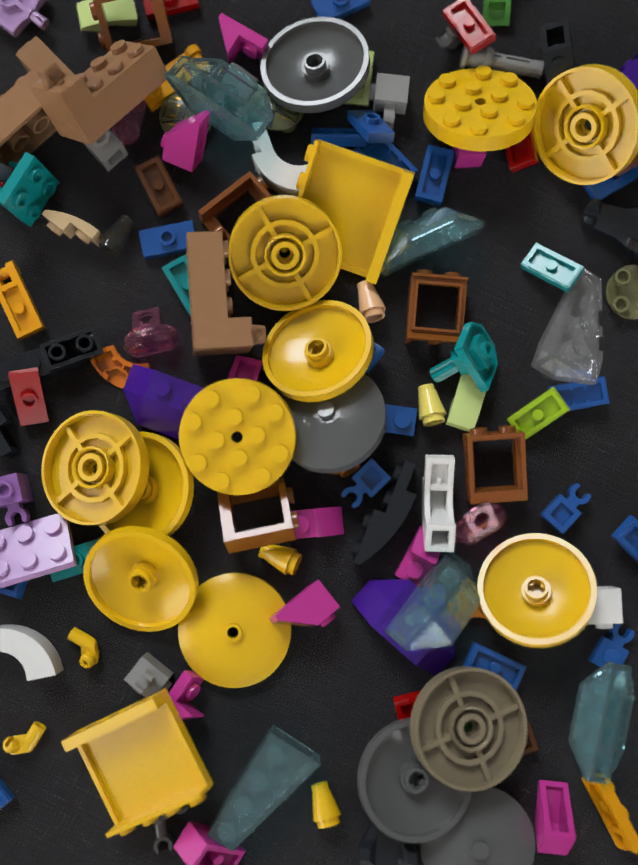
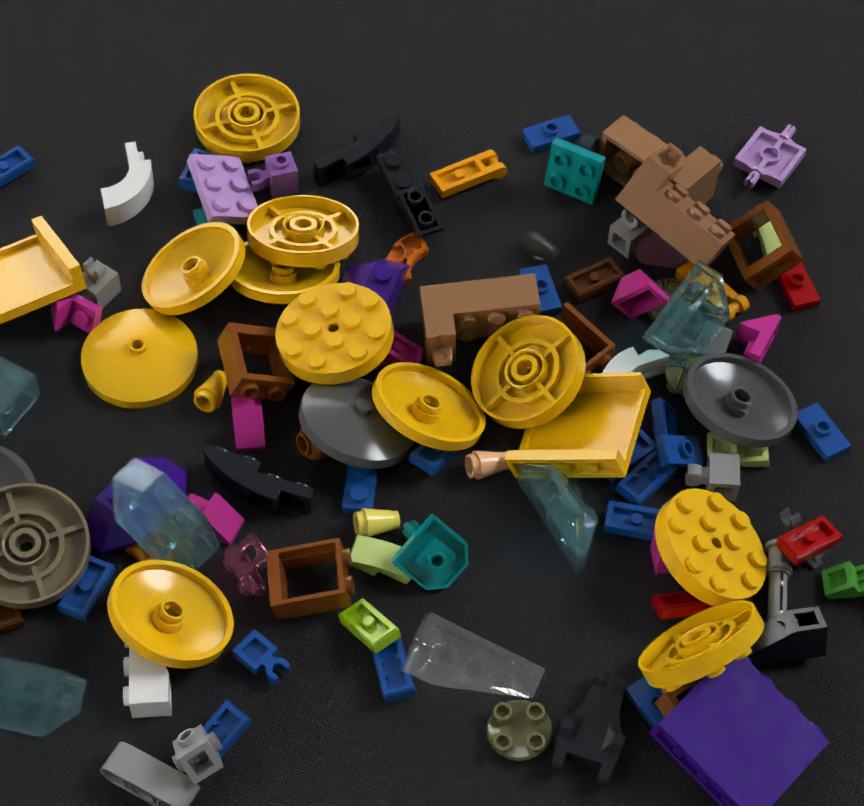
camera: 85 degrees right, 30 degrees down
(25, 742) = (41, 198): yellow arm -> none
(29, 396) = (372, 182): red plate -> none
(71, 225) = (544, 212): tan slope -> none
(88, 646) = (130, 241): yellow arm -> none
(149, 337) = (436, 270): clear pink bracket -> none
(308, 608) = (159, 410): dark pink slope -> none
(369, 481) = (290, 466): blue plate -> none
(434, 335) = (488, 546): dark orange window -> none
(437, 503) = (273, 528): white arch -> none
(552, 267) = (540, 638): plate -> none
(611, 649) = (99, 710): blue plate -> none

